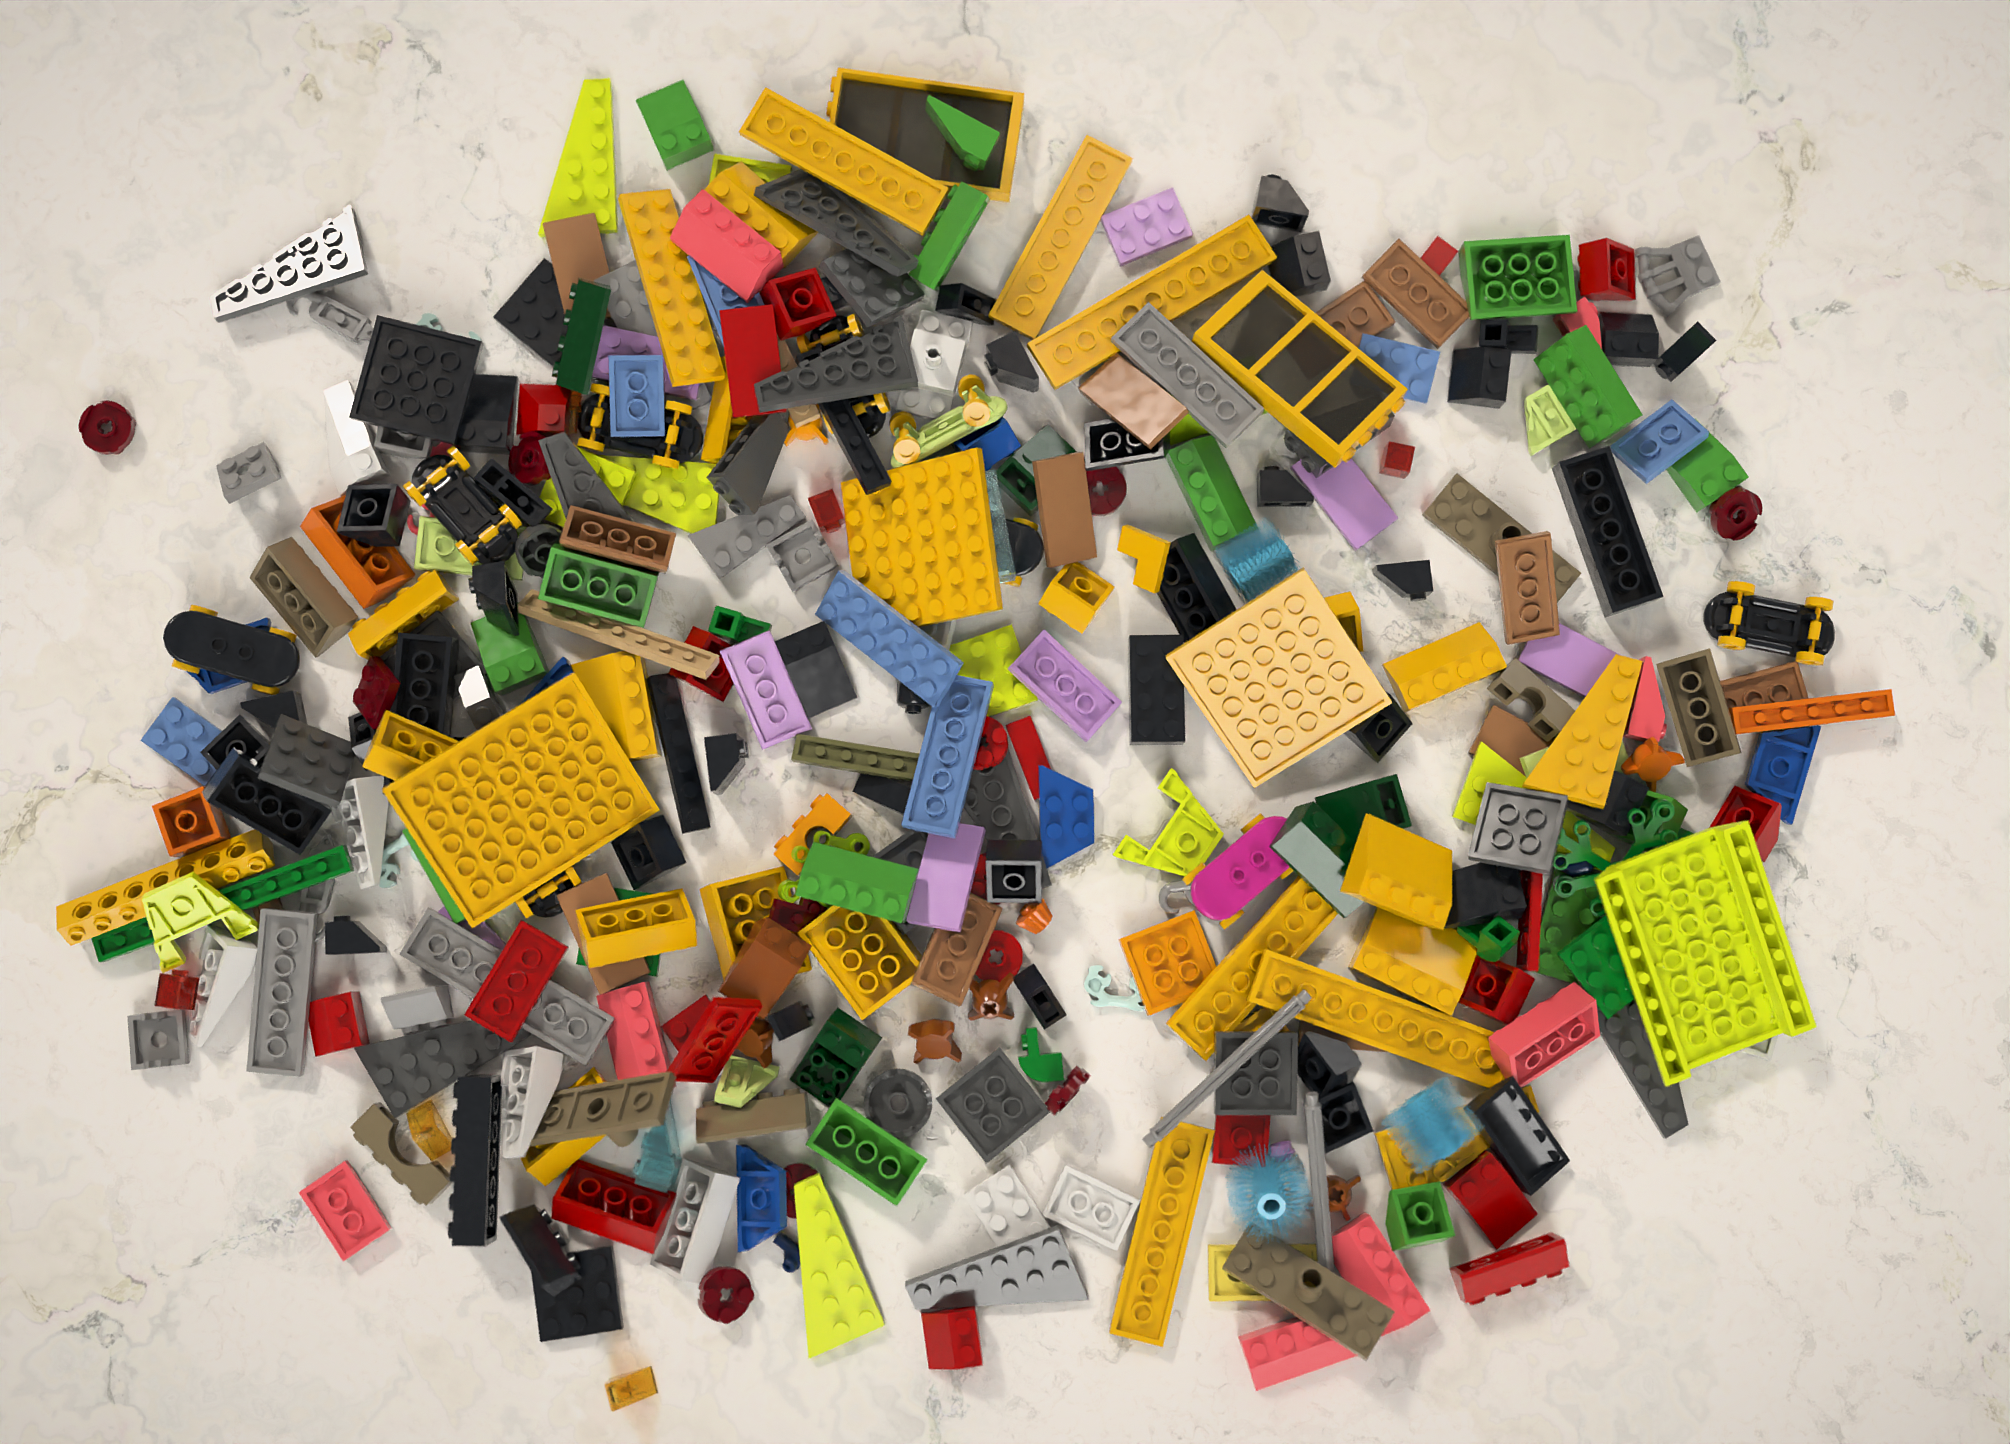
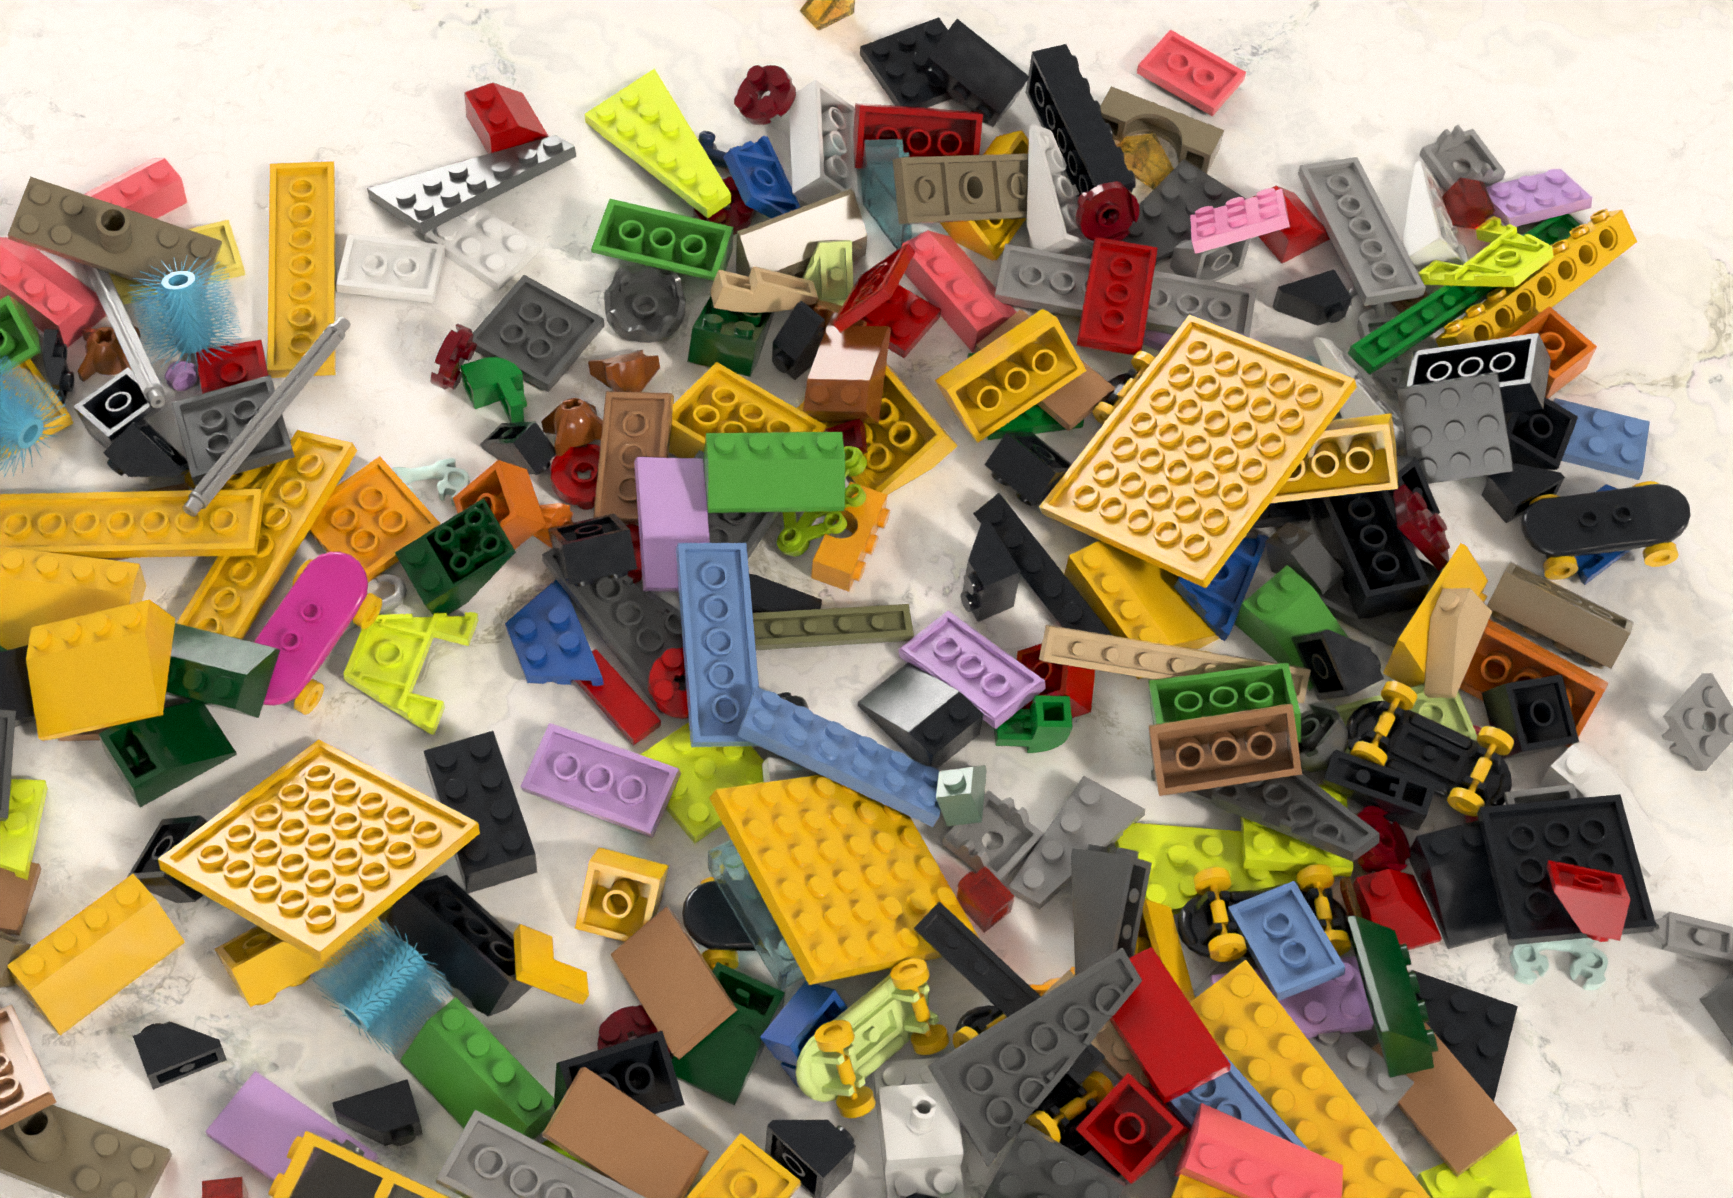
camera: 155 degrees right, 25 degrees down
(115, 981) = (1537, 198): none -> lavender plate
(388, 1008) = (1238, 220): none -> bright pink plate
(404, 582) = (1453, 639): none -> tan slope
(415, 343) = (1592, 898): none -> slope
(491, 1060) = (1099, 199): none -> dark red plate
(802, 1074) = (760, 291): none -> tan slope
(811, 593) = (962, 794): none -> sand green slope
(1073, 930) = (510, 498): none -> orange brick
(1117, 898) = (456, 558): none -> dark green slope
(1377, 1177) = (55, 364): none -> black slope

